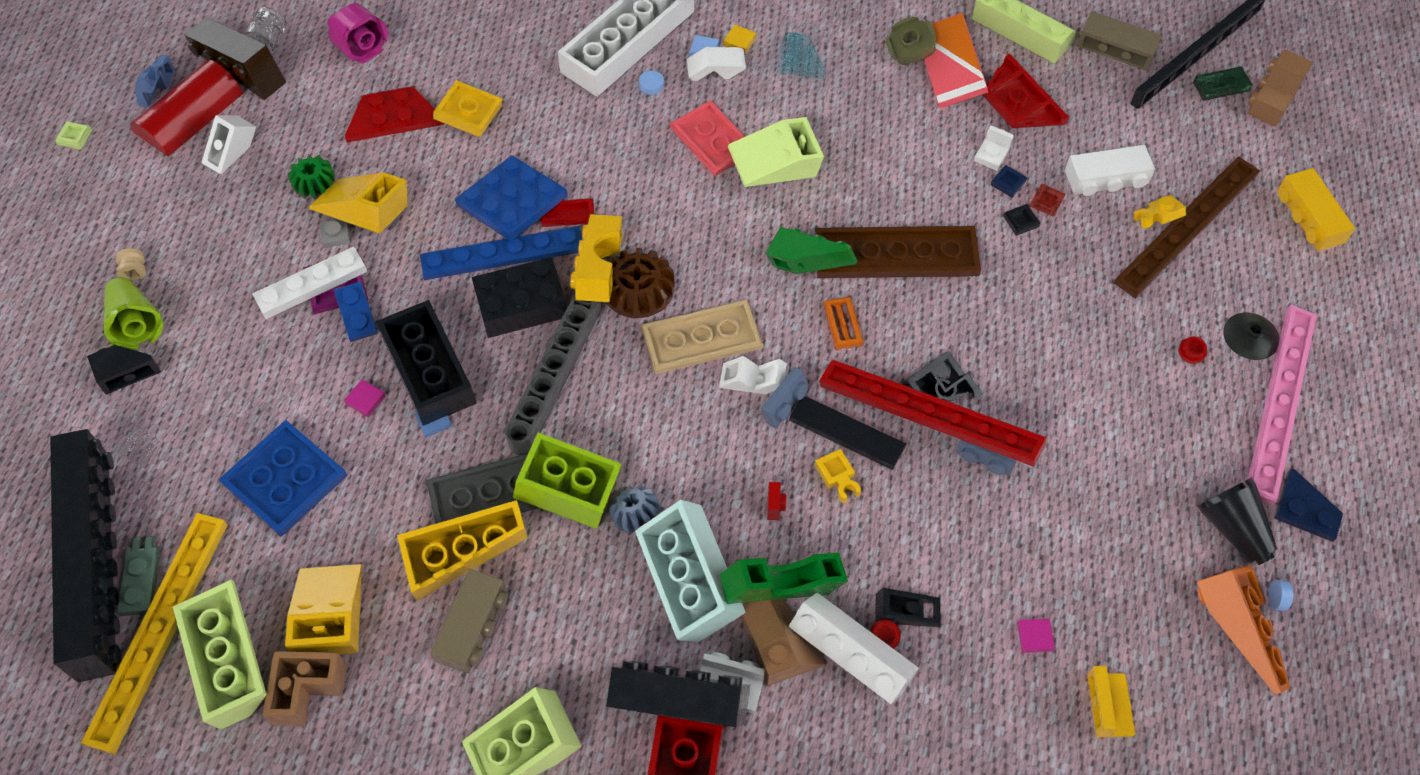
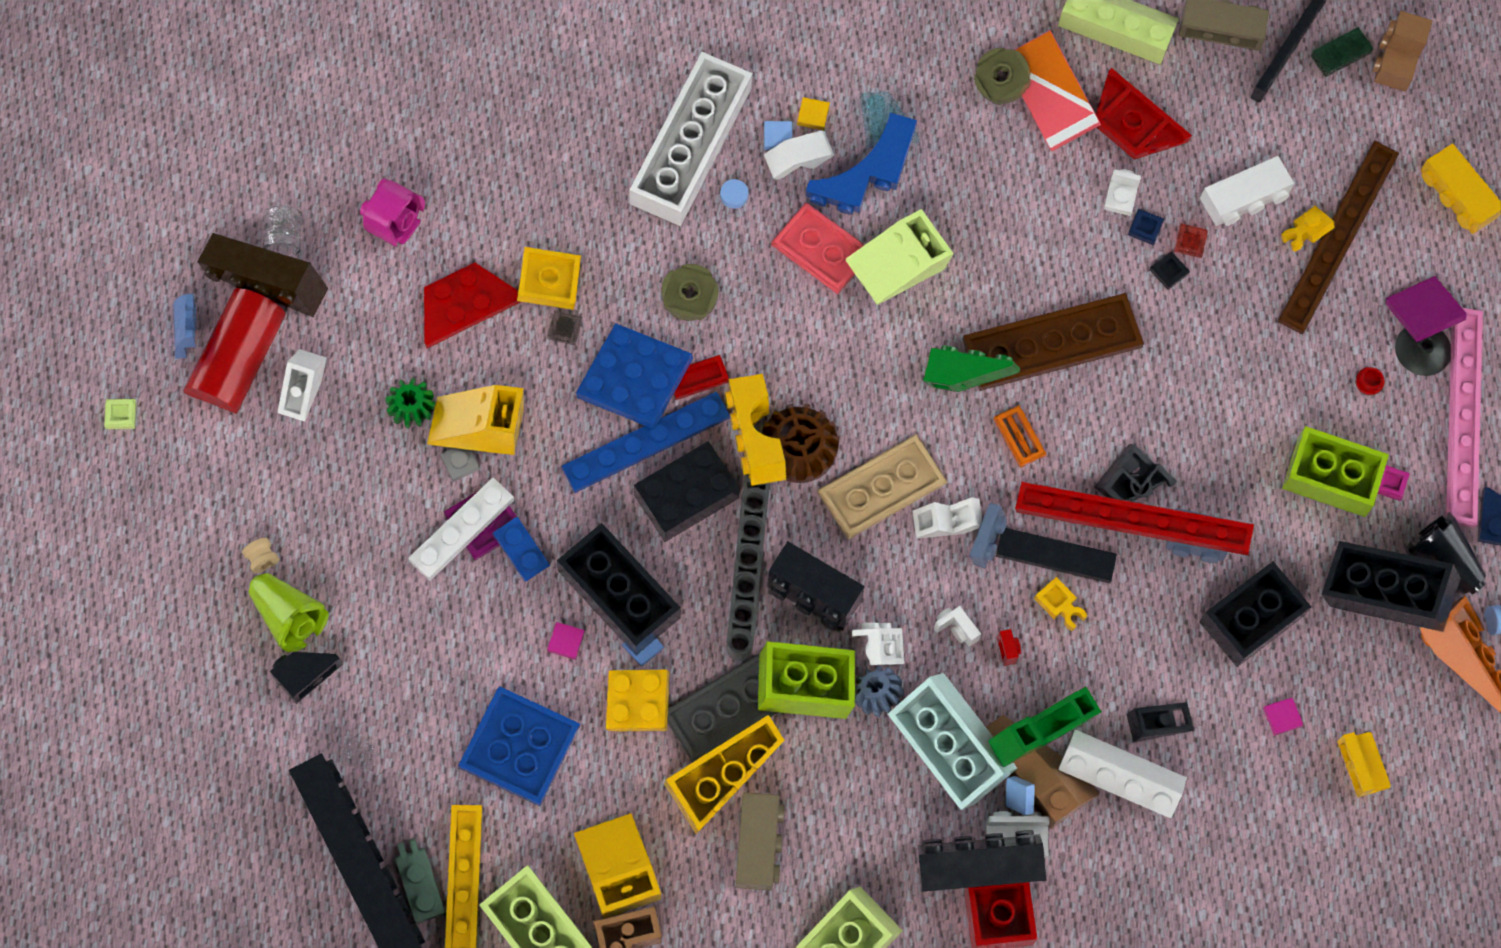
camera: 20 degrees left, 10 degrees up
(407, 464) = (637, 700): none -> yellow plate
(468, 150) = (564, 328): none -> clear smoke plate
(588, 157) = (681, 279): none -> olive plate
(605, 400) = (814, 587): none -> black brick
(651, 465) = (883, 643): none -> white bracket
(734, 470) = (963, 627): none -> white bracket
(742, 641) = (1020, 795): none -> light blue tile
(782, 82) = (881, 167): none -> blue arch
(887, 632) = (1147, 749): red plate -> none
(1029, 528) = (1255, 614): none -> black brick
(1141, 417) = (1335, 471): none -> lime brick
(1177, 531) = (1391, 586): none -> black brick
(1195, 443) = (1393, 483): none -> dark pink tile
(1261, 299) = (1426, 309): none -> magenta tile

